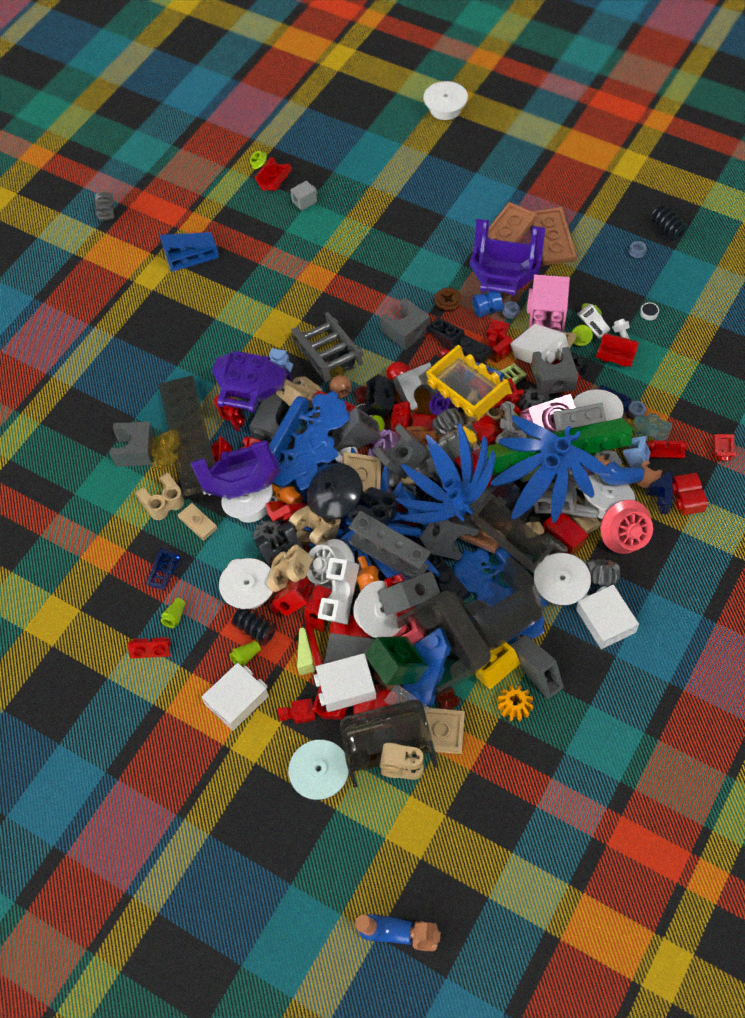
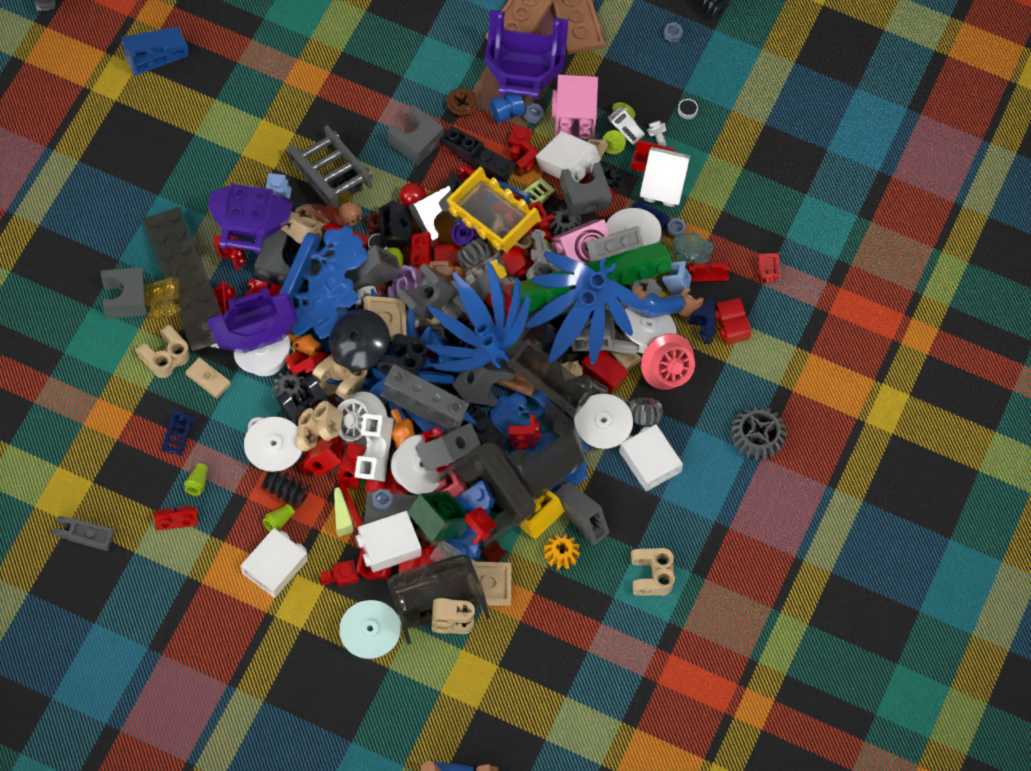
camera: 15 degrees left, 5 degrees up
(64, 657) = (85, 533): none -> dark grey hinge
(320, 381) = (329, 213): none -> clear red dish
(343, 642) = (382, 500): none -> sand blue tile
(435, 670) = (481, 524): none -> red bracket
(485, 588) = (525, 436): none -> red bracket
(603, 714) = (648, 557): none -> tan piece
(627, 364) = (664, 176): none -> white brick
(715, 592) = (755, 420): none -> dark grey gear

